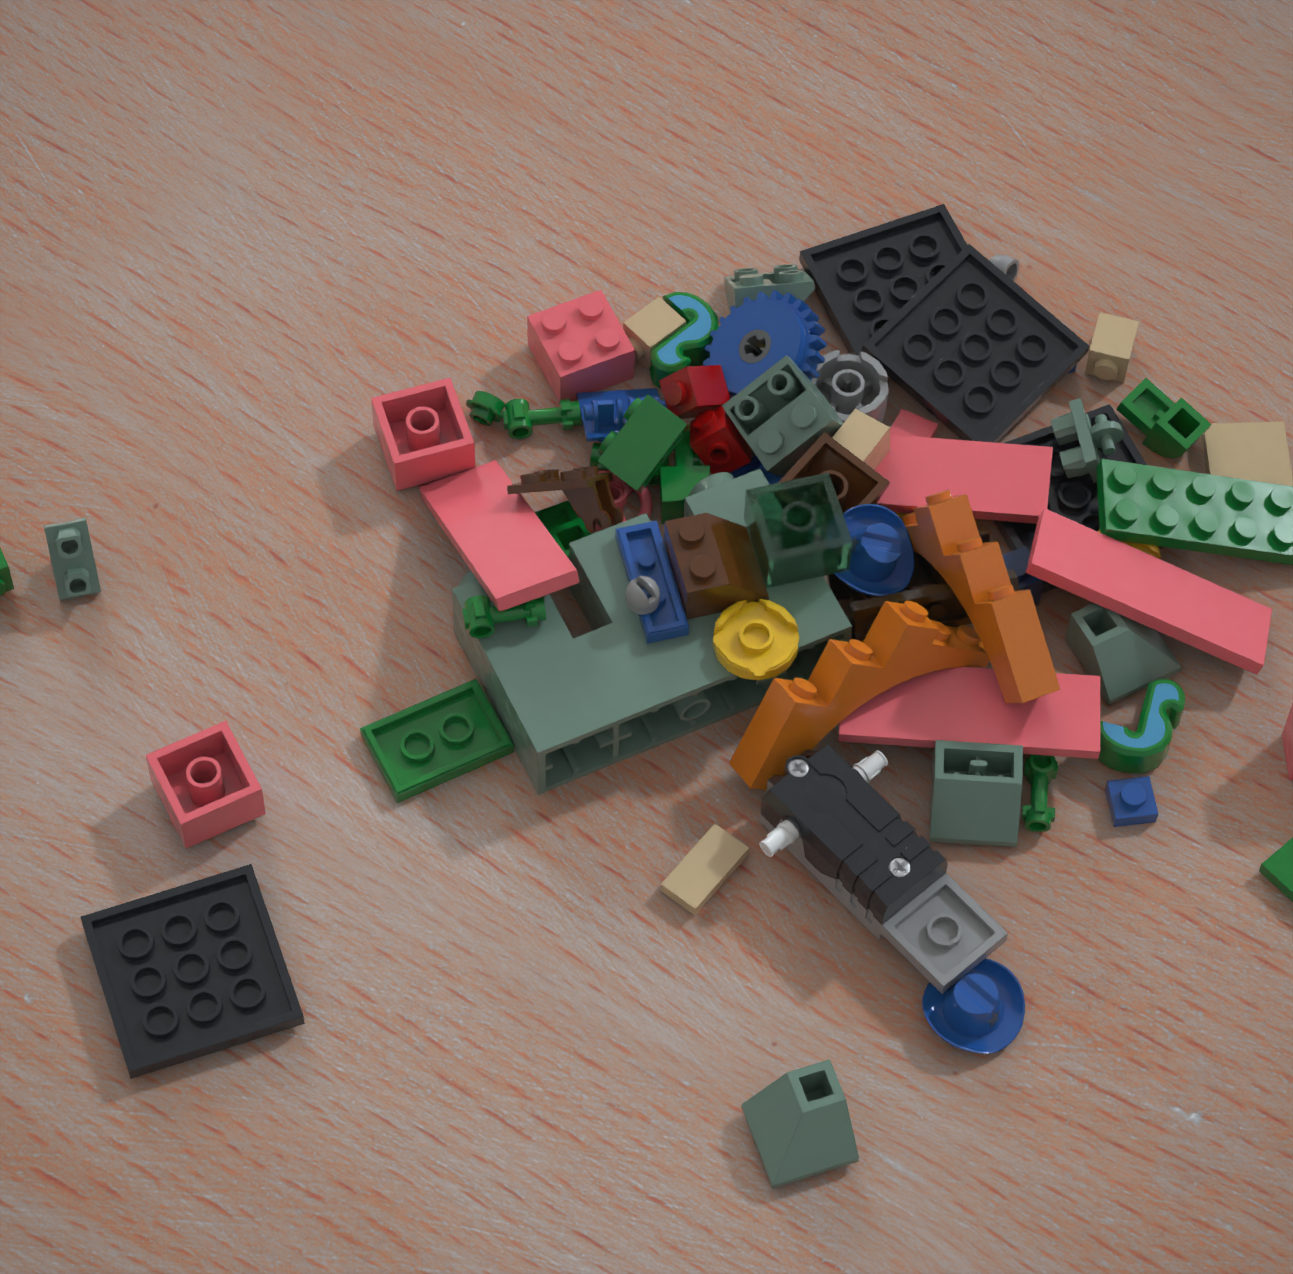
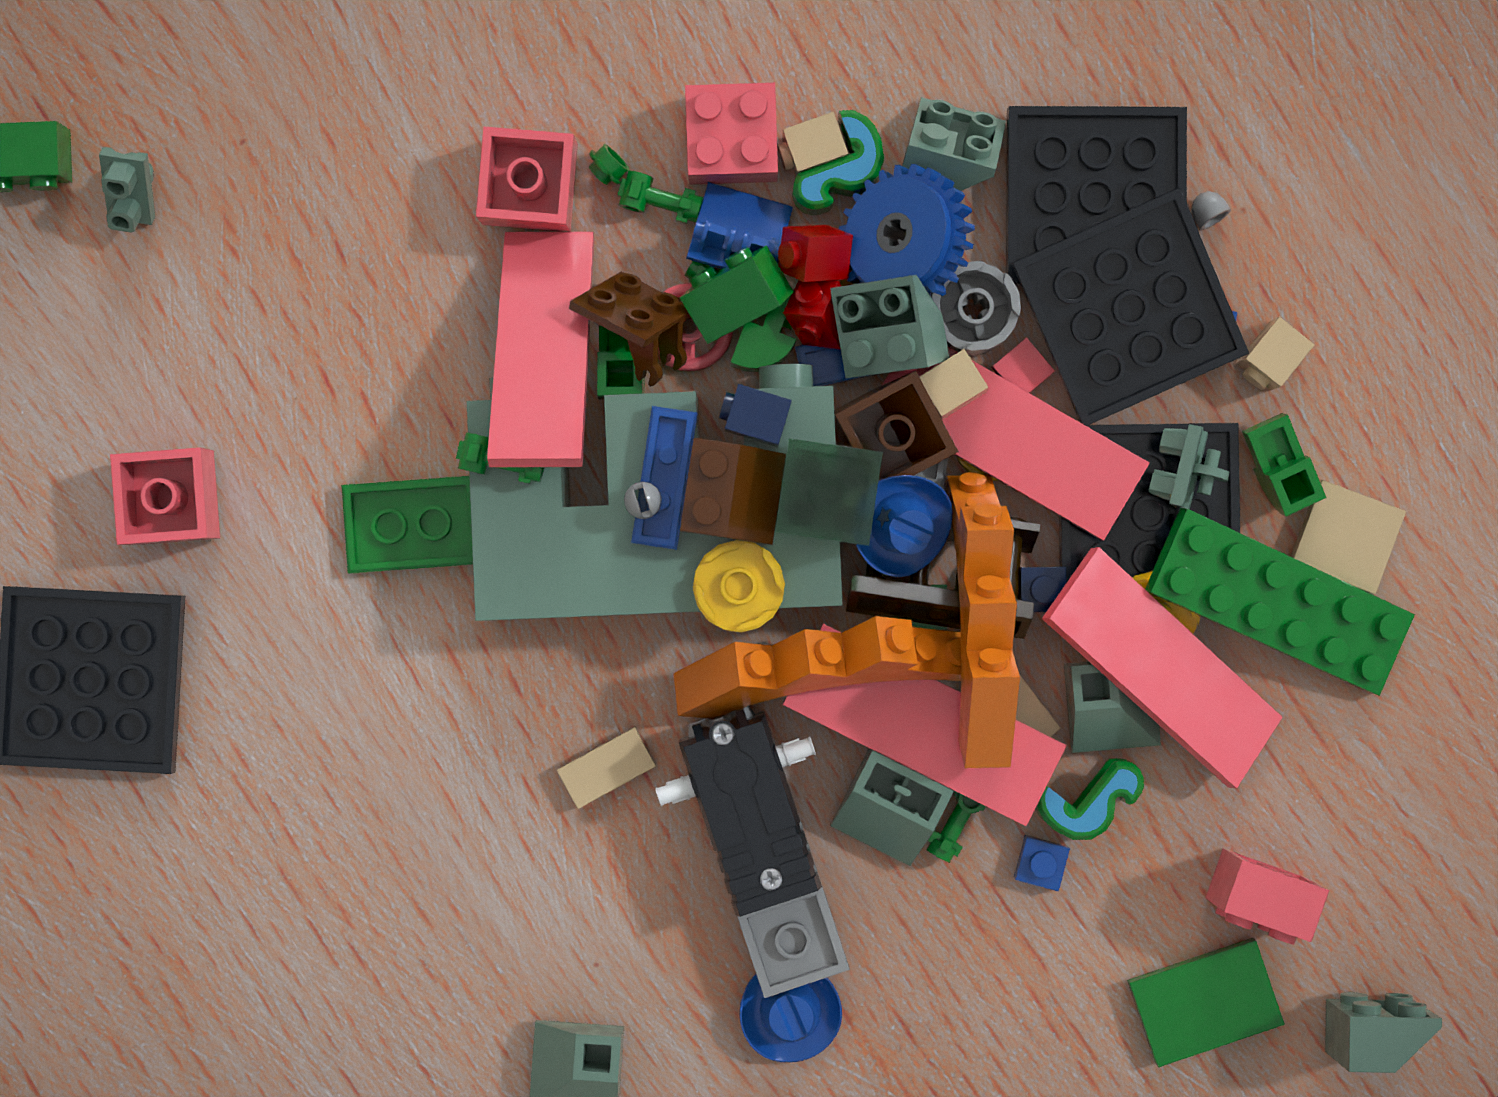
camera: 25 degrees right, 30 degrees up
(708, 493) = (755, 414): none -> dark blue brick

